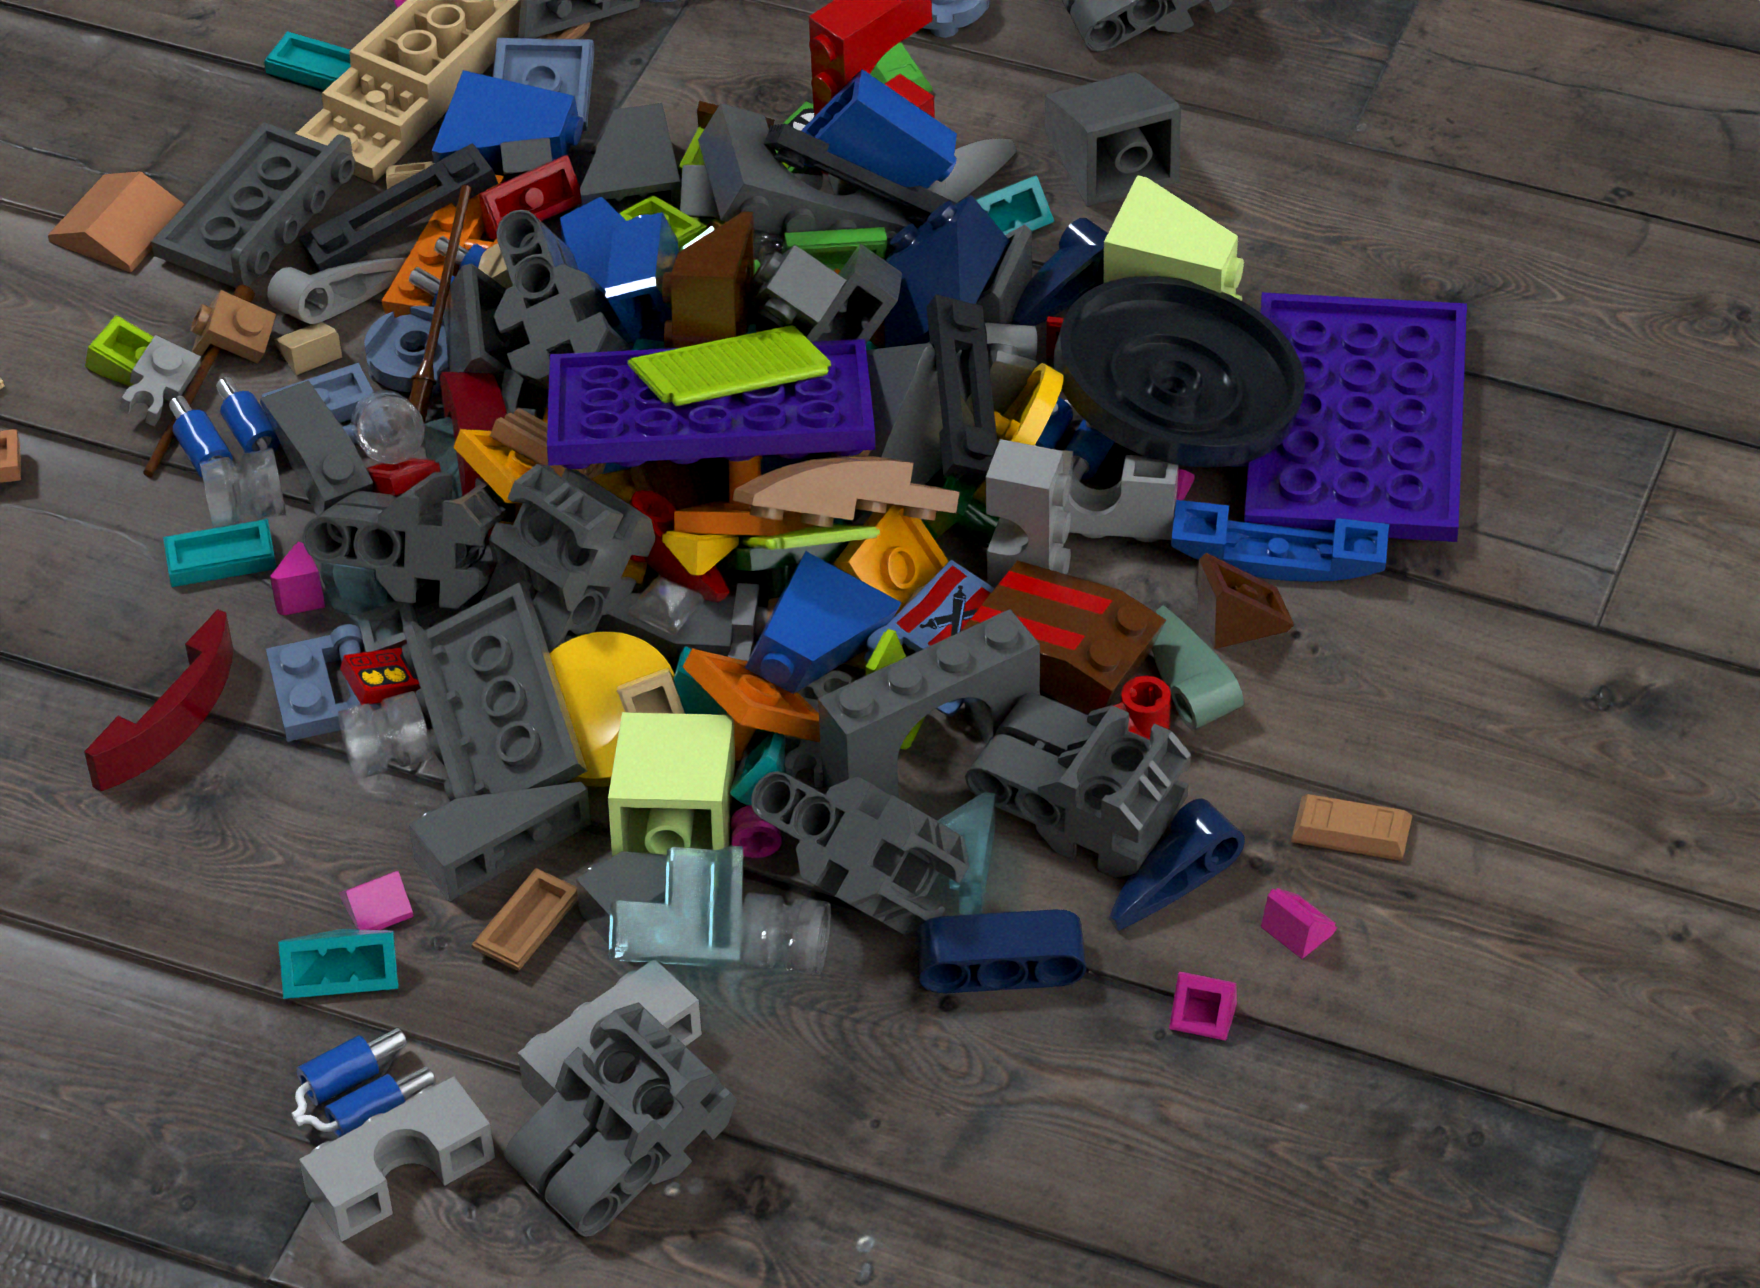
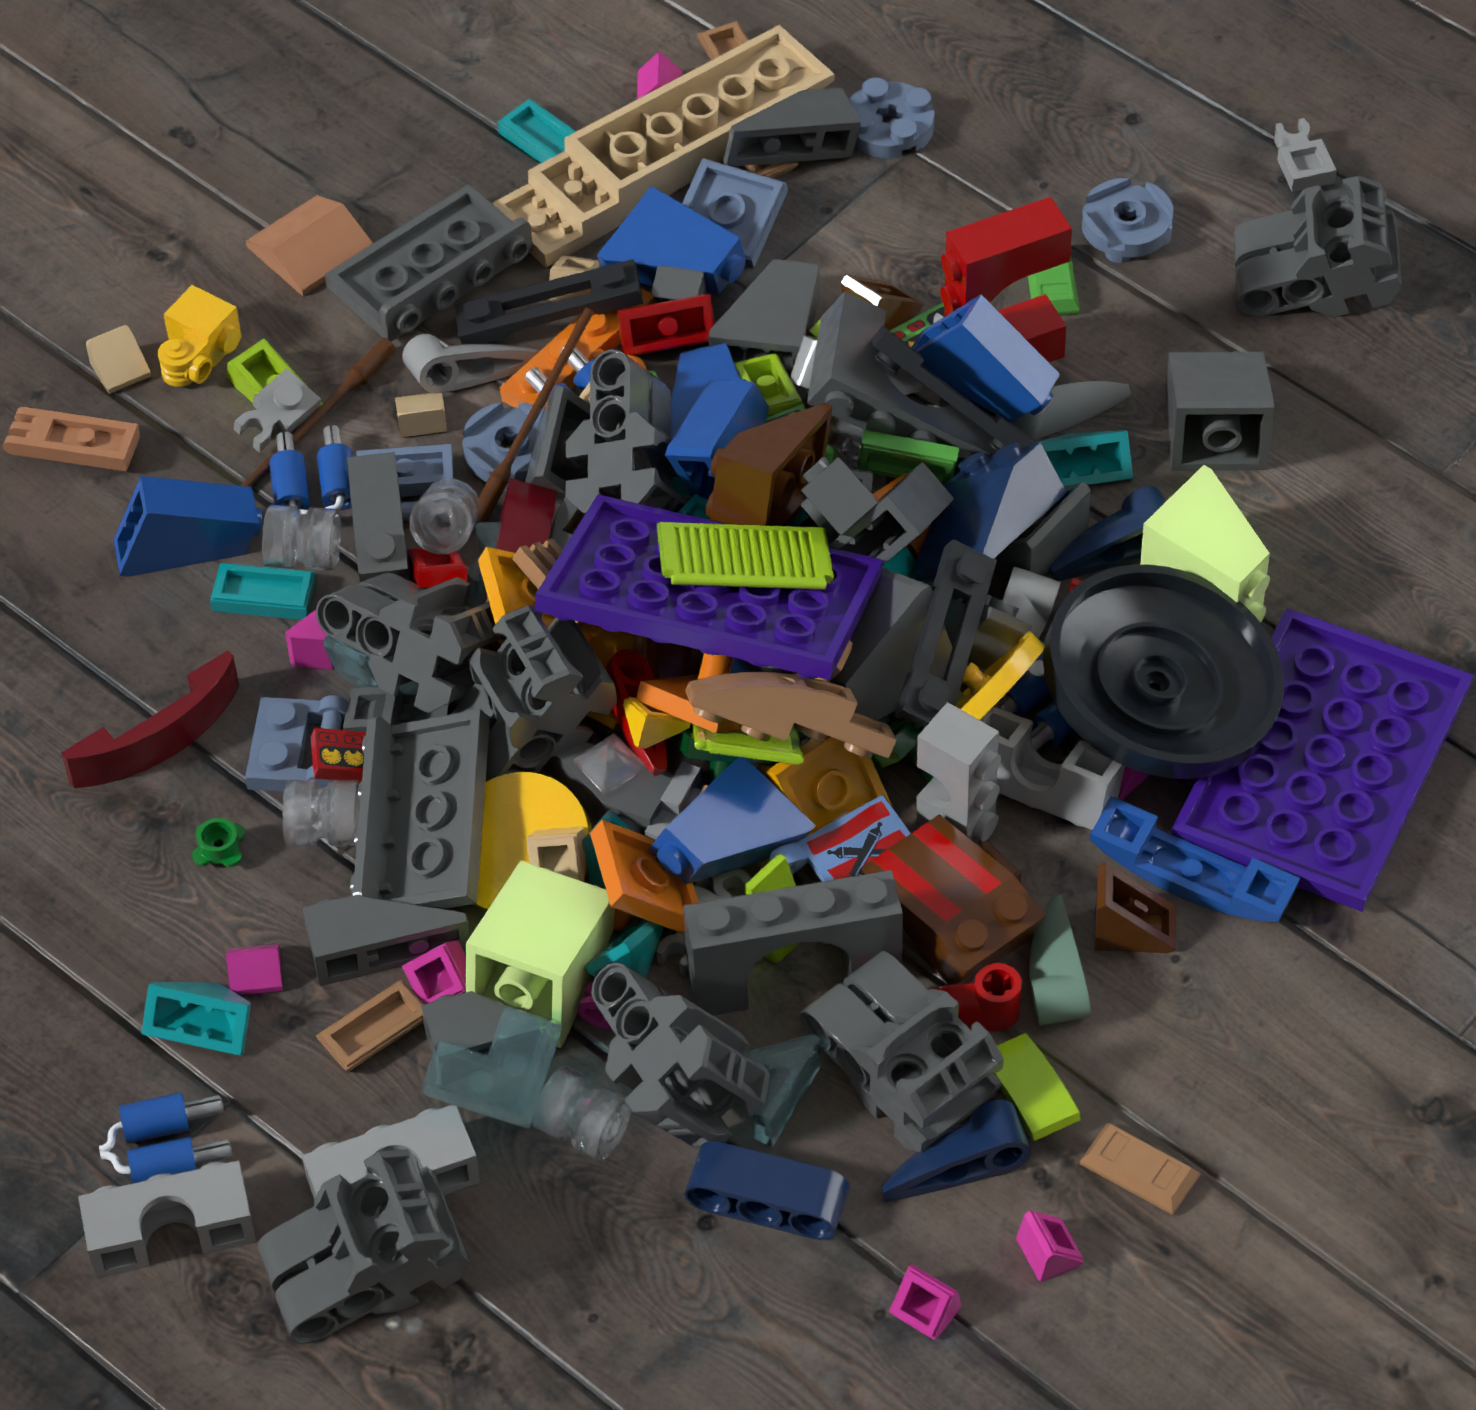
camera: 20 degrees right, 5 degrees up
(41, 332) = (199, 336): none -> yellow brick
(109, 509) = (184, 524): none -> blue slope
(233, 327) = (361, 377): medium nougat bracket -> none
(283, 796) = (218, 832): none -> green plate
(573, 850) = (438, 972): none -> dark pink slope
(1226, 785) = (1034, 1089): none -> lime slope

